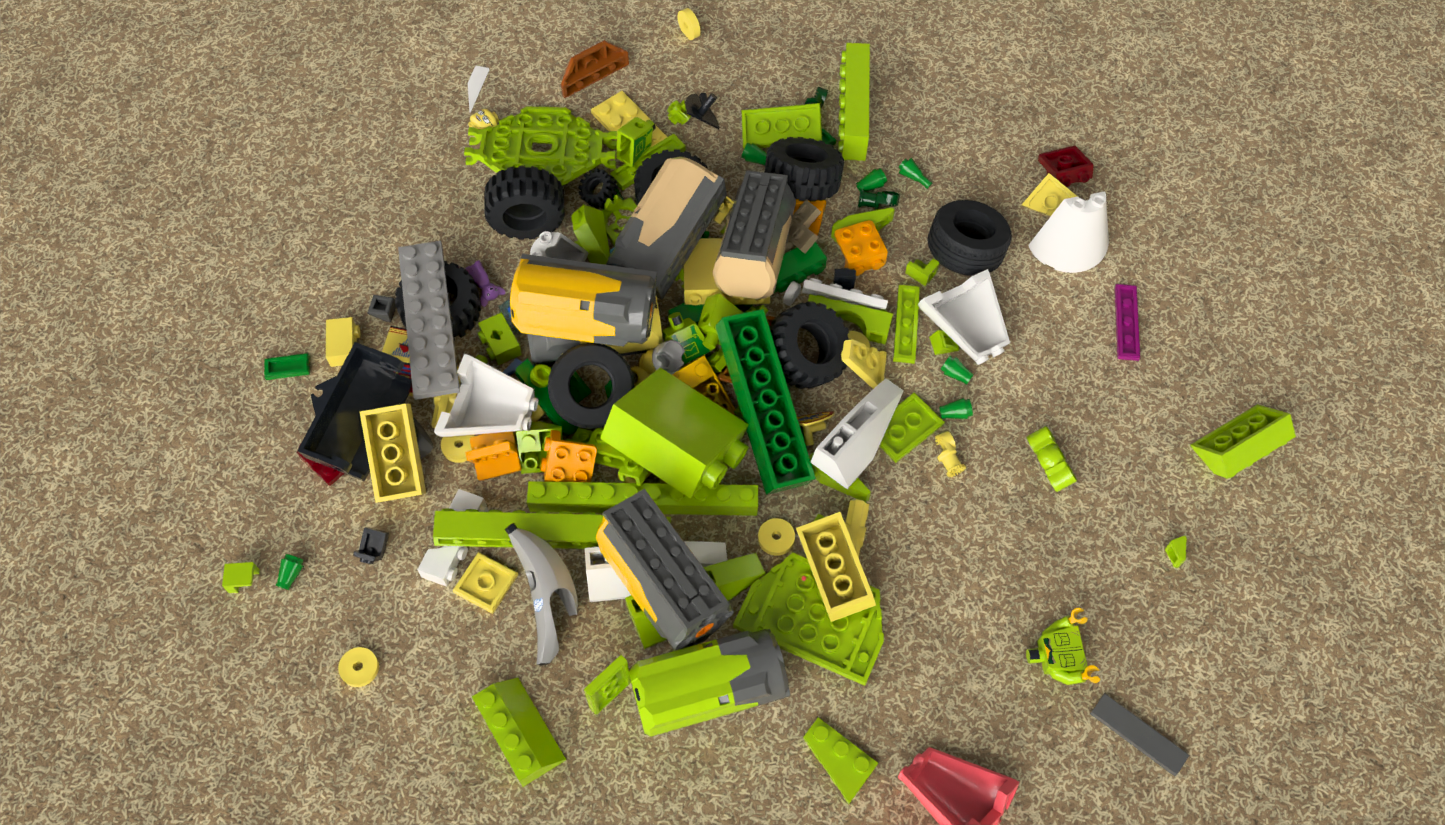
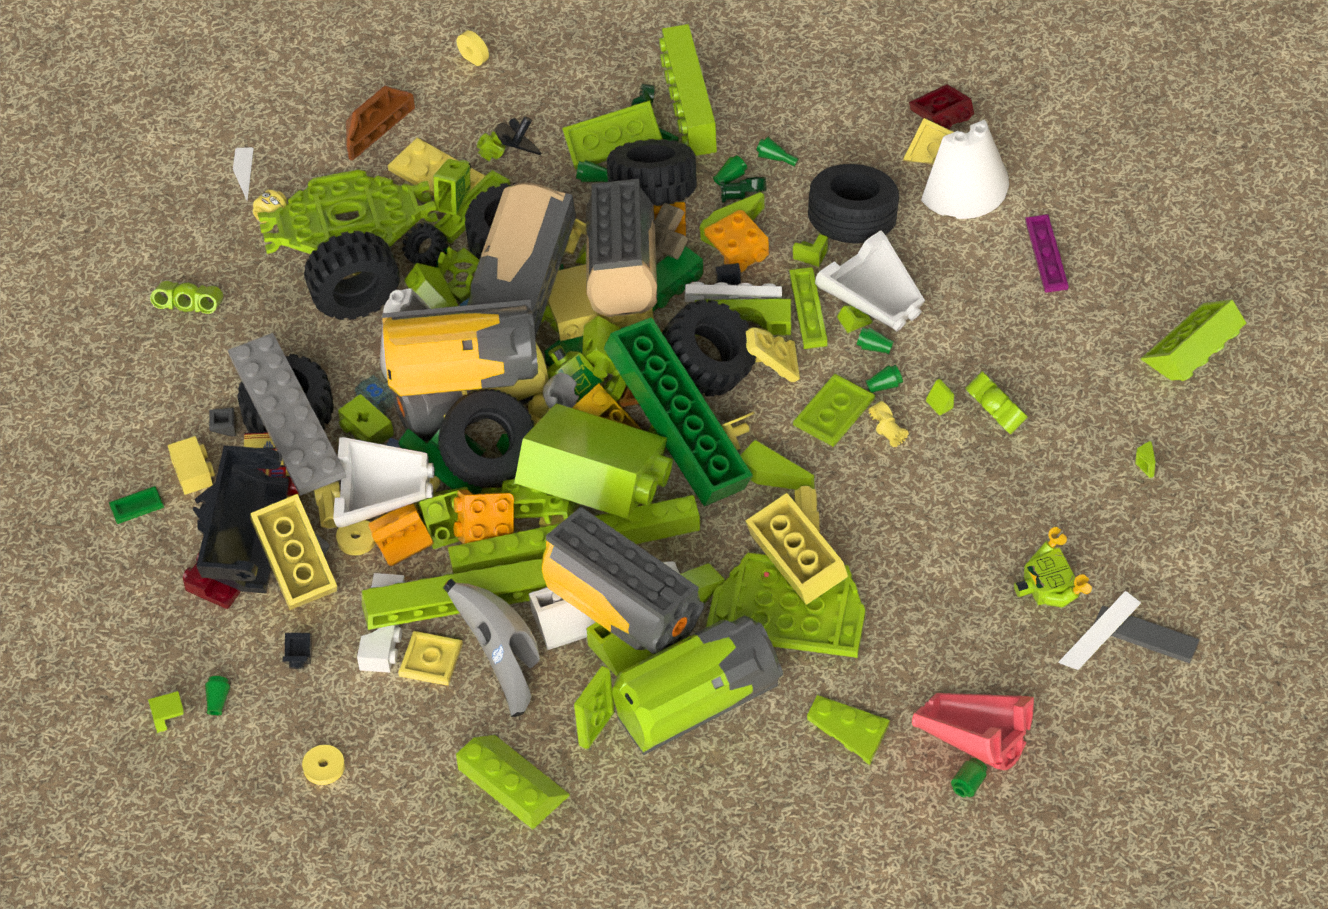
camera: 10 degrees left, 10 degrees down
(390, 187) = (176, 299): none -> lime piece
(489, 290) = (336, 377): medium lavender animal -> none
(539, 375) = (427, 442): lime tile -> none
(773, 527) = (729, 553): light yellow piece -> none
(792, 293) = (674, 304): white tile -> none
(858, 435) = (785, 423): white wedge -> none
(1002, 440) = (940, 398): none -> lime slope
(1097, 721) = (1100, 631): none -> white sticker

